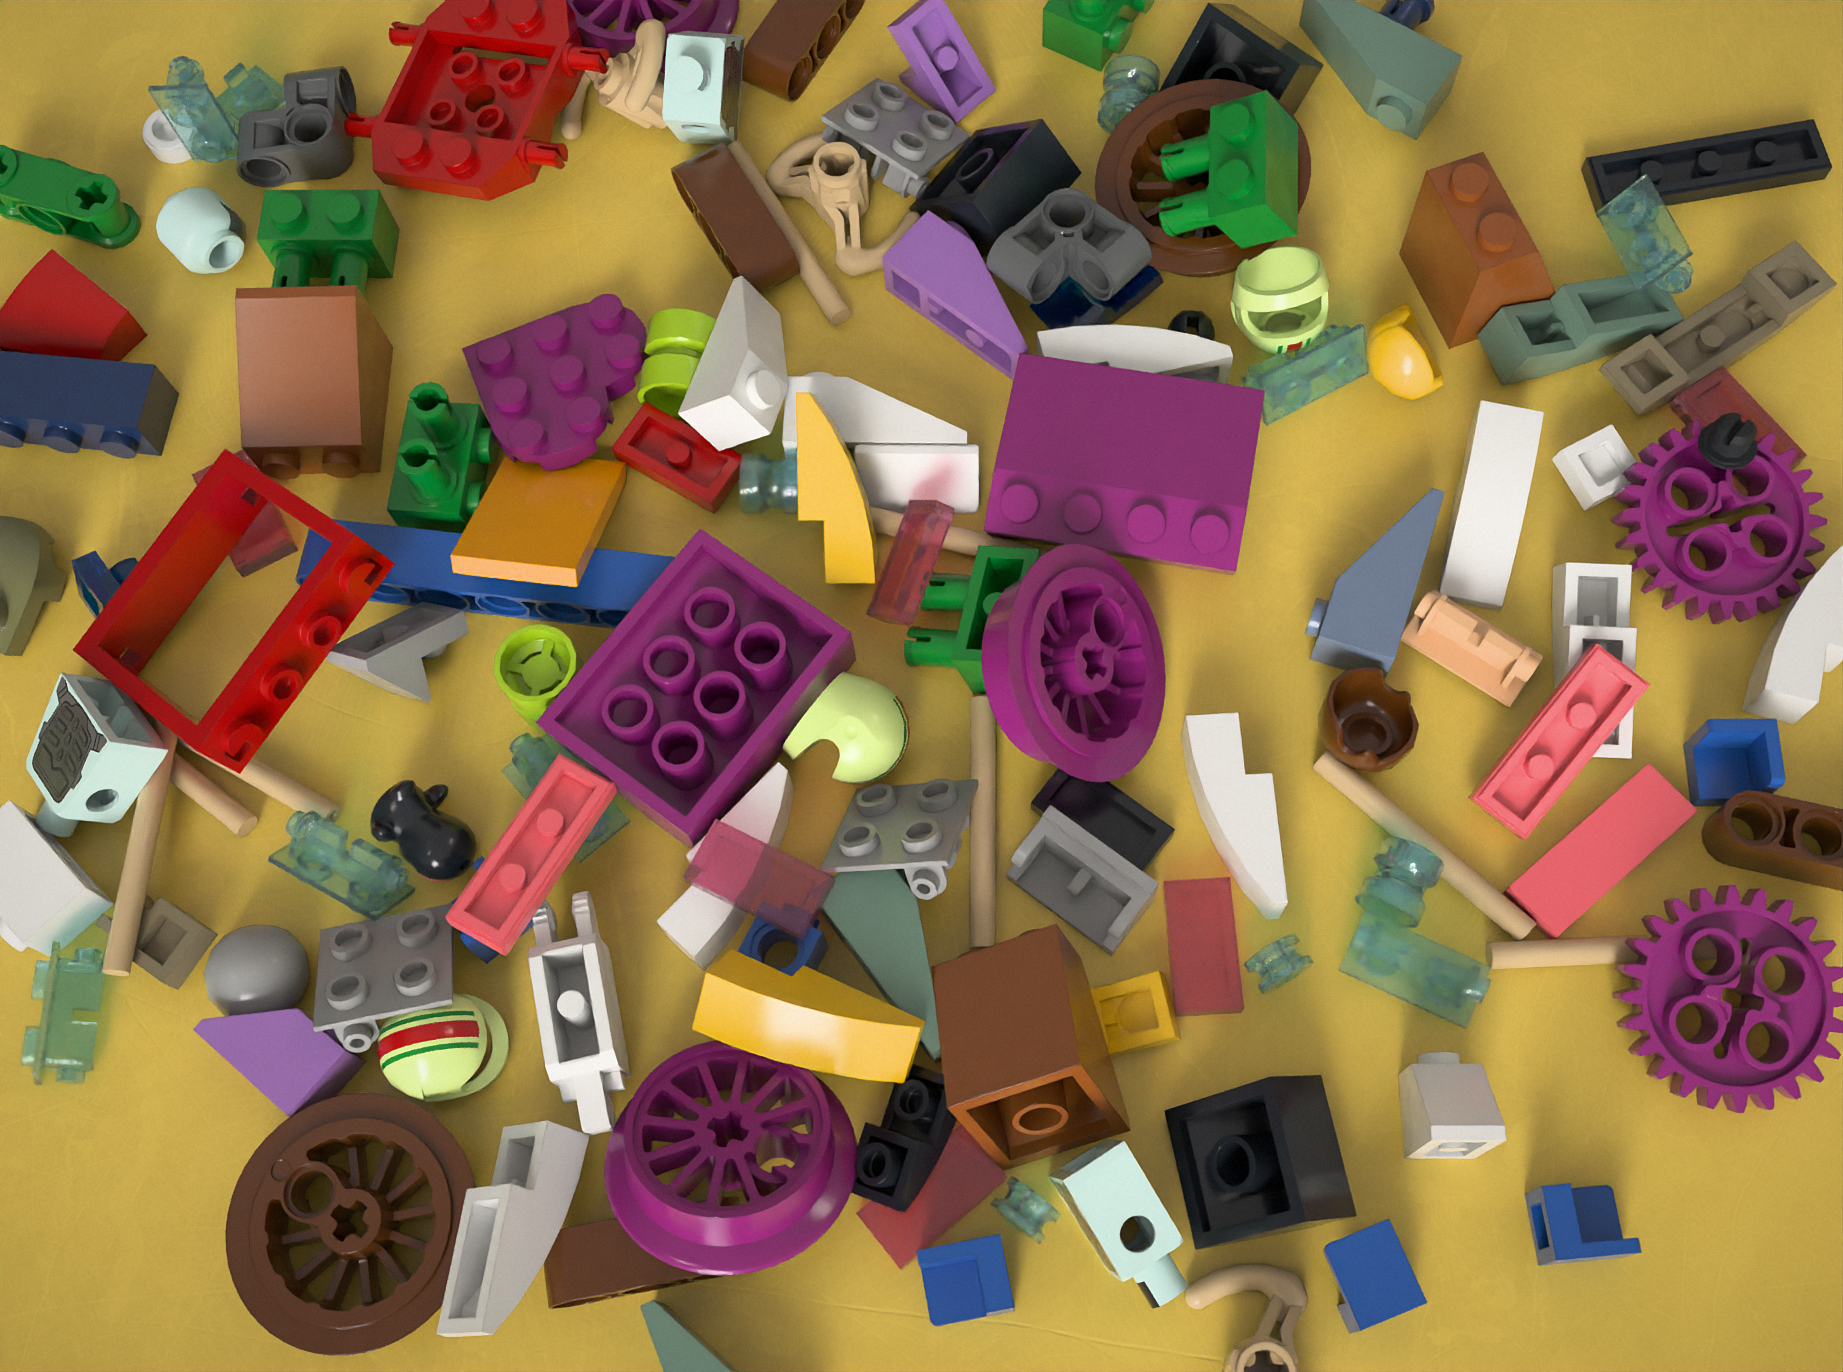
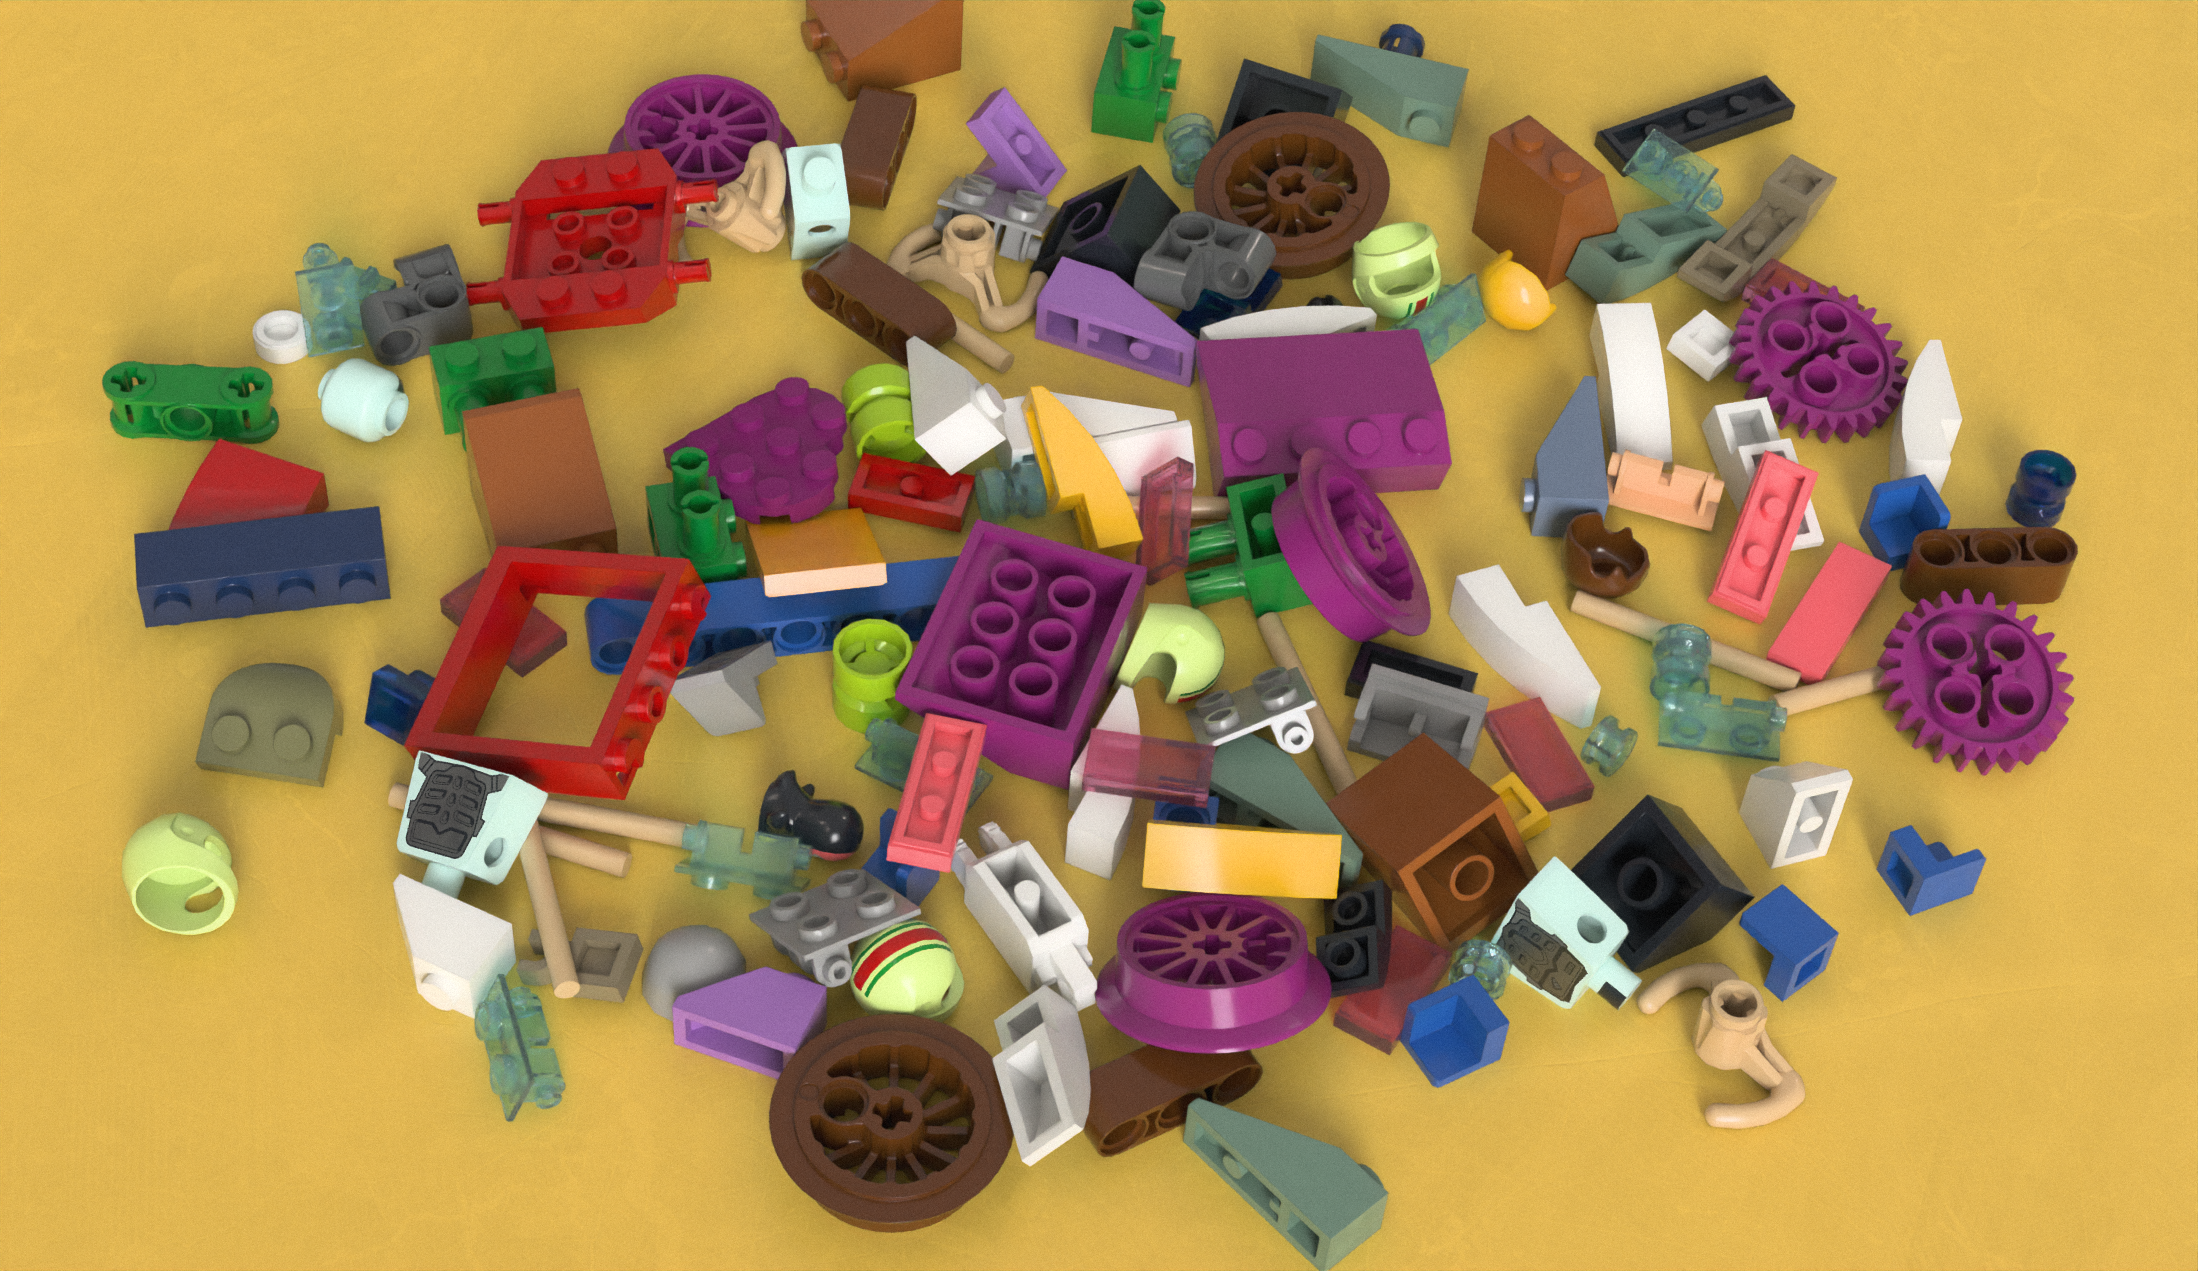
camera: 30 degrees left, 20 degrees down
(1250, 169) = (1345, 168): green brick -> none
(1729, 442) = (1805, 291): black piece -> none

